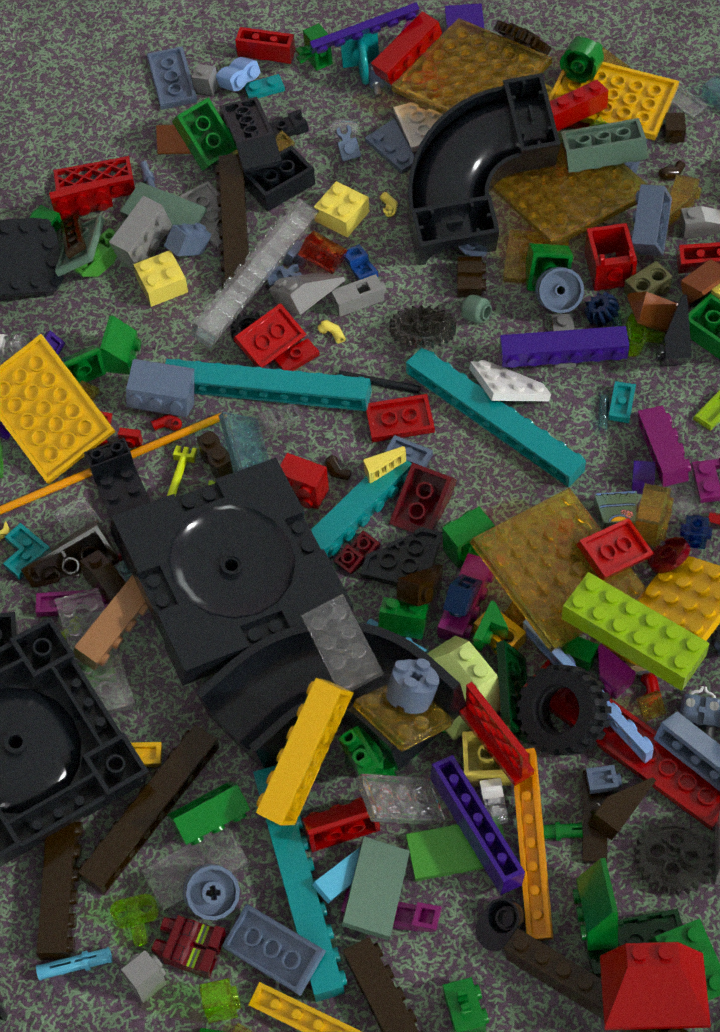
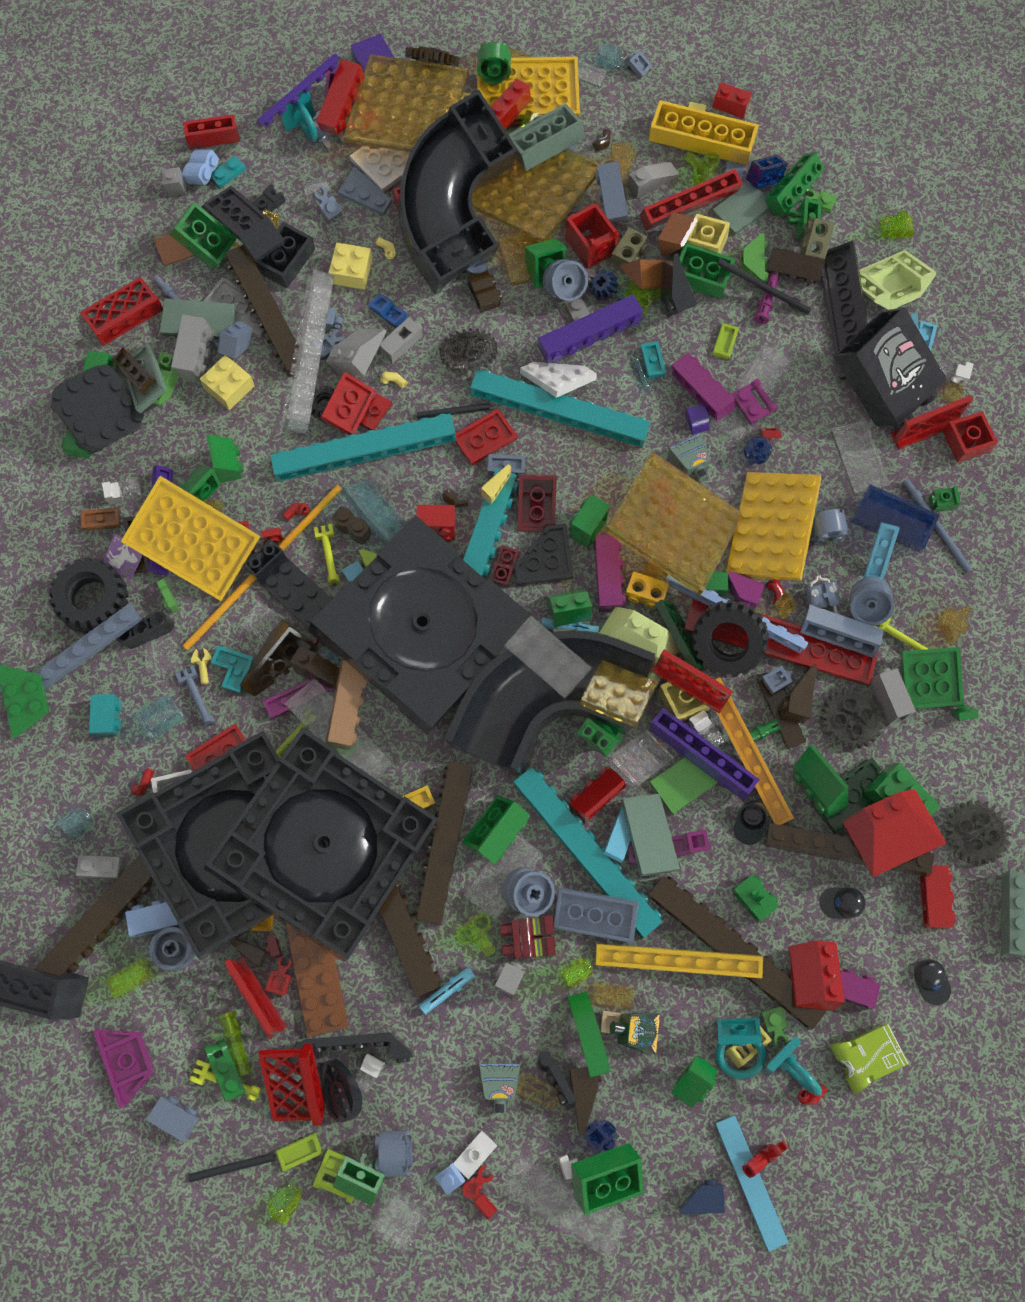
camera: 30 degrees left, 15 degrees up
(82, 199) = (123, 333): red plate -> none
(160, 388) = (278, 483): sand blue slope -> none
(171, 78) = (141, 188): sand blue tile -> none
(304, 752) = (559, 752): yellow brick -> none
(318, 61) = (252, 112): green brick -> none
(322, 252) = (355, 311): clear red brick -> none
(412, 685) = (619, 670): sand blue brick -> none
(420, 586) = (574, 579): dark brown slope -> none
(462, 595) = (610, 572): dark blue slope -> none
(476, 309) = (502, 319): sand green head -> none
(490, 624) = (643, 587): green slope -> none
(614, 549) = (709, 490): red plate -> none
(635, 631) = (760, 555): lime brick -> none
(654, 514) = (722, 449): clear yellow brick -> none
(669, 555) = (747, 478): dark red tile -> none
(674, 128) = (589, 100): dark brown brick -> none

